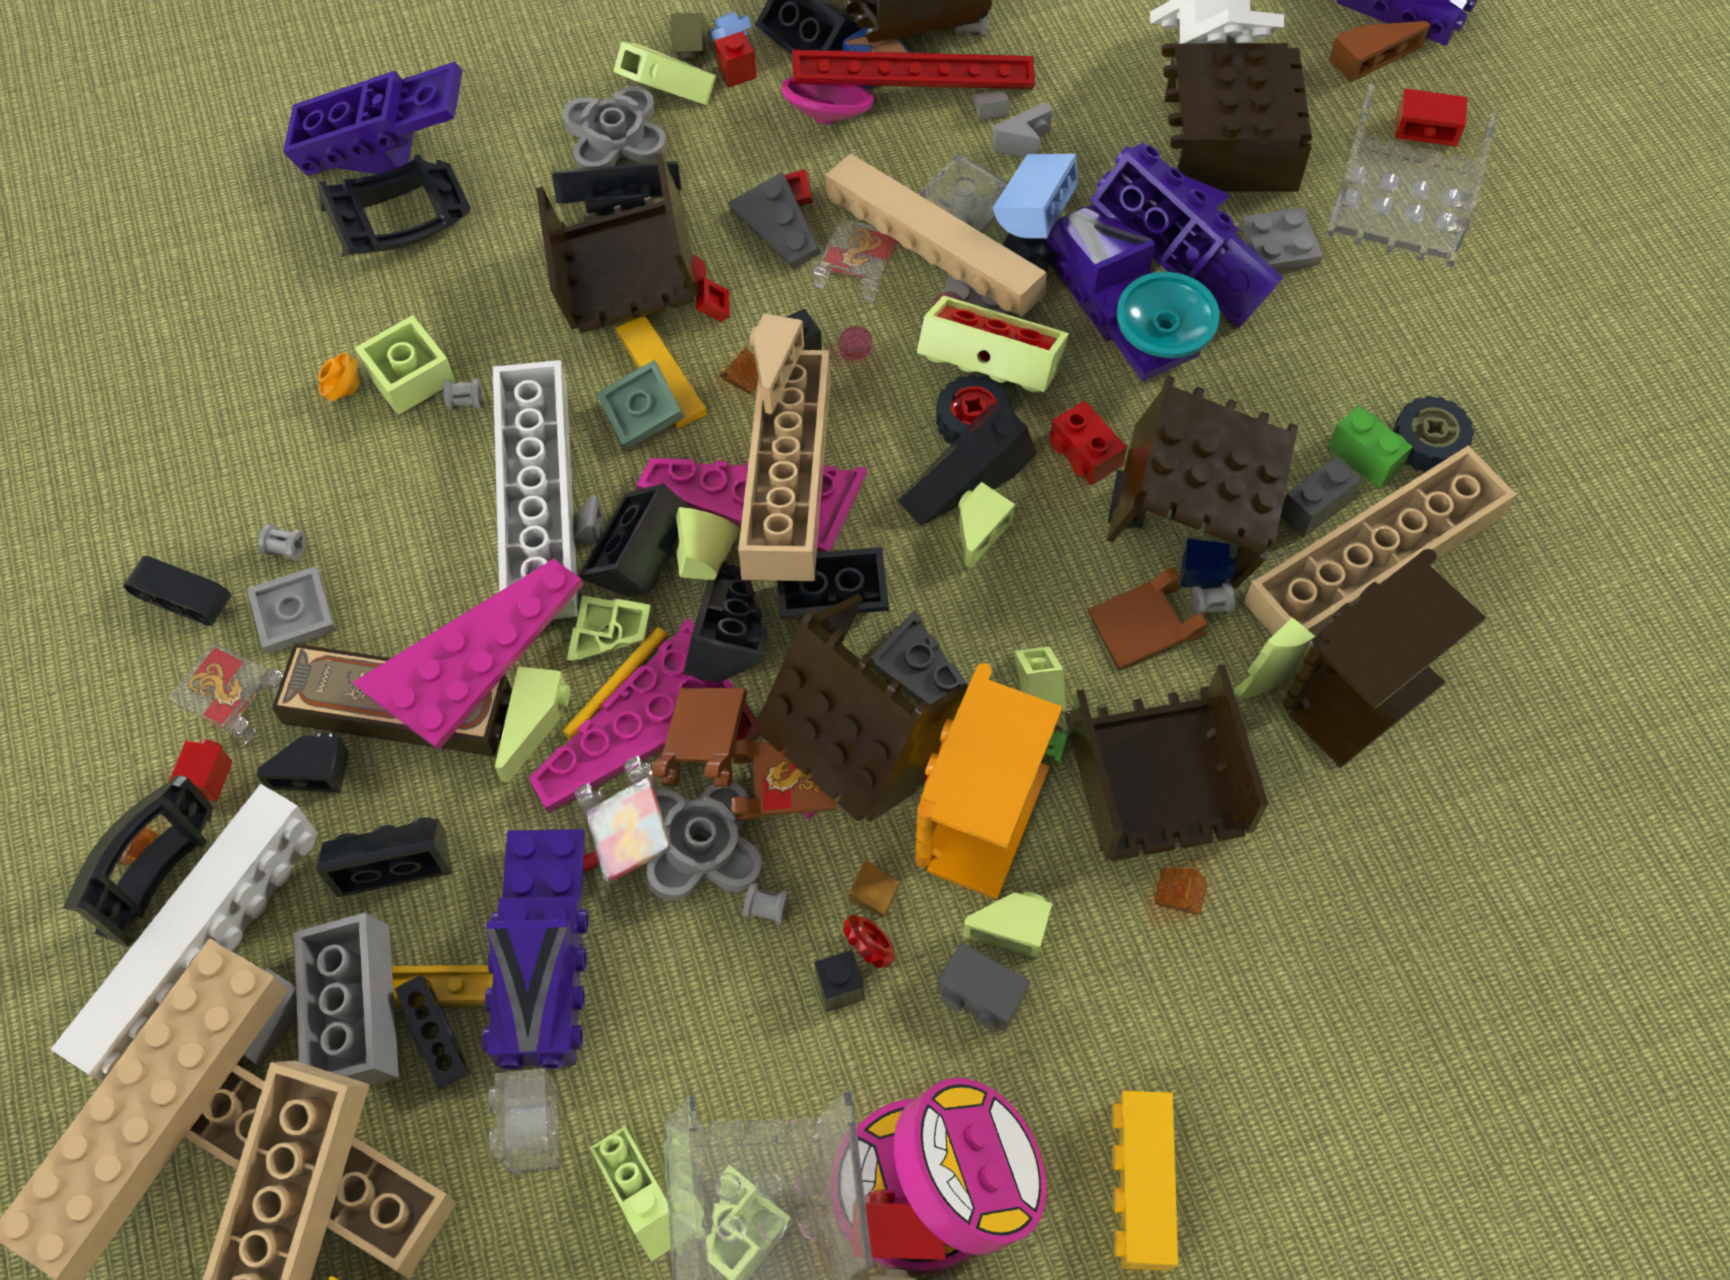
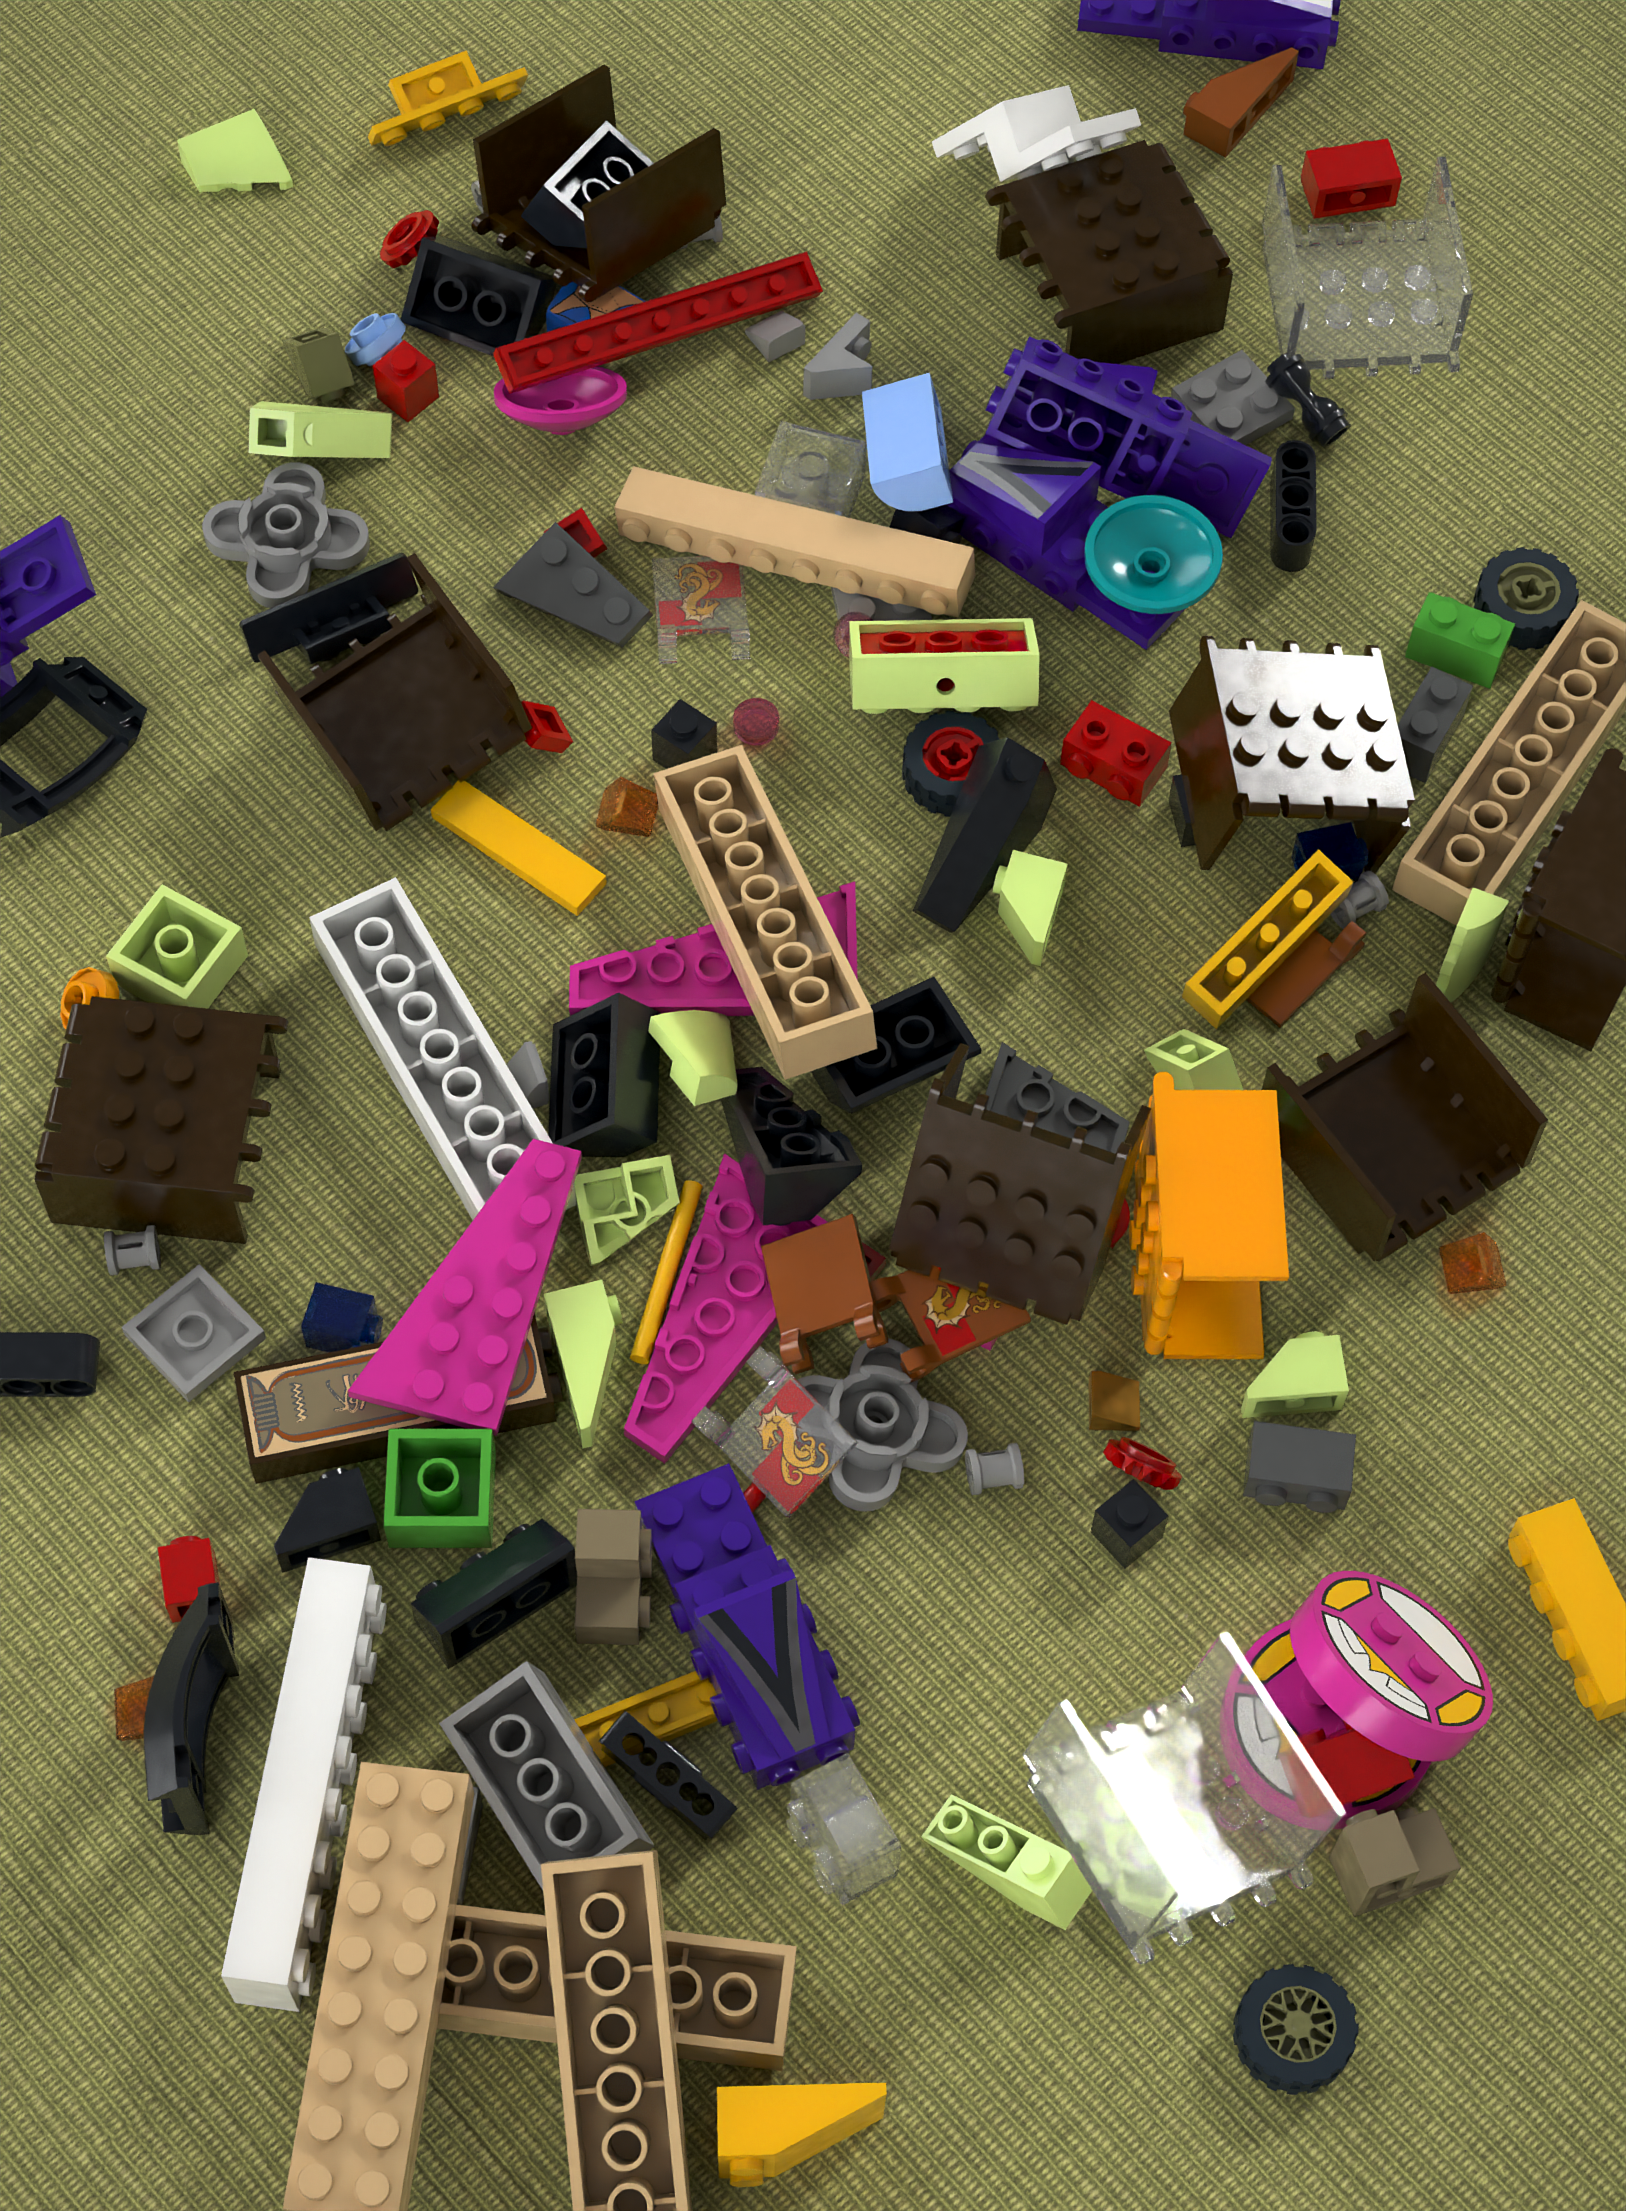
camera: 25 degrees left, 0 degrees up
(222, 689) = (159, 1466): clear flag -> none
(326, 456) = (155, 1118): none -> dark brown windscreen
(383, 633) = (340, 1319): none -> clear blue brick
(385, 771) = (440, 1488): none -> bright green brick
(463, 394) = (271, 967): light grey bush -> none
(466, 877) = (610, 1565): none -> dark tan brick
(640, 405) = (521, 900): sand green plate -> none
(776, 350) = (680, 775): tan slope -> none
(1130, 603) = (1267, 939): none -> yellow brick
(1291, 319) = (1293, 506): none -> black beam
(1338, 265) = (1319, 414): none -> black piece

